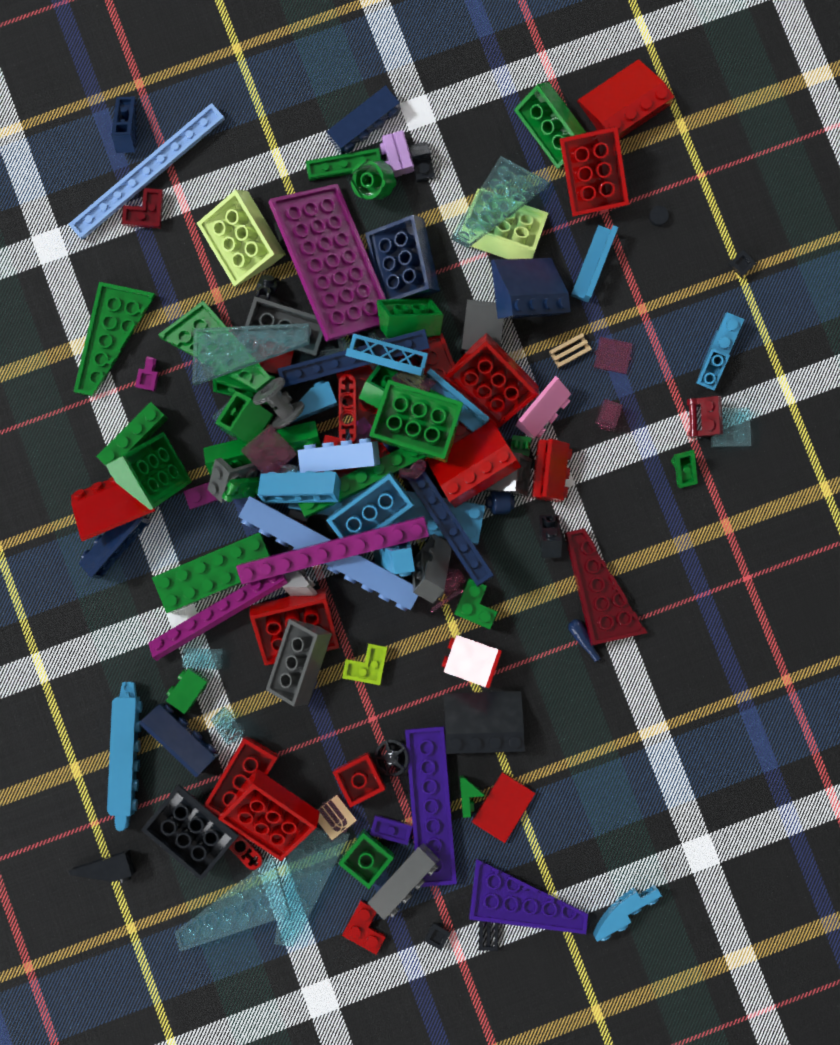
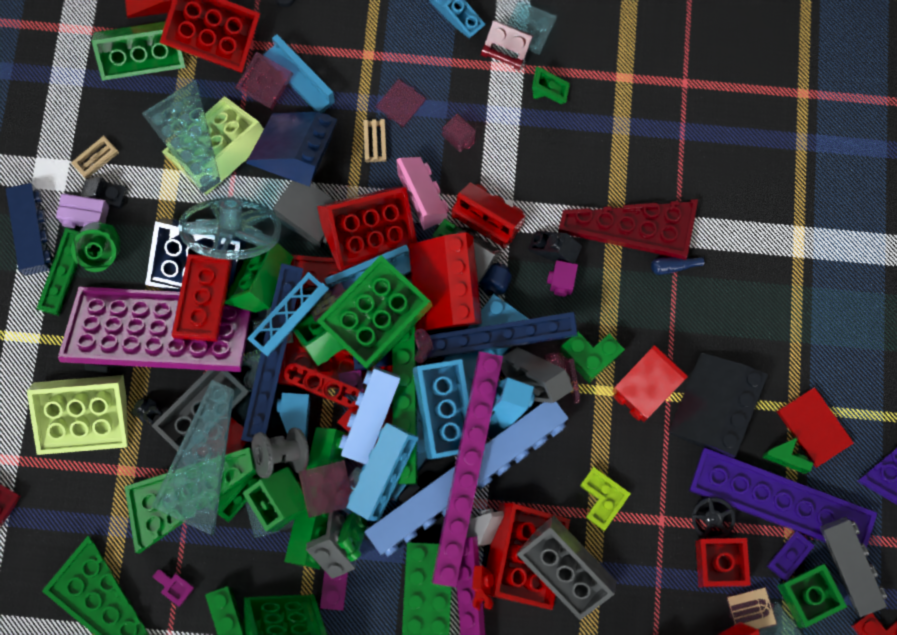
camera: 65 degrees left, 10 degrees down
(253, 603) = (482, 584): none -> red plate
(370, 282) = (202, 298): none -> red tile
(430, 140) = (97, 156): none -> tan tile
(438, 272) = (228, 224): none -> clear light blue wheel
(526, 554) = (562, 278): none -> magenta brick
(575, 237) = (264, 80): none -> clear pink plate

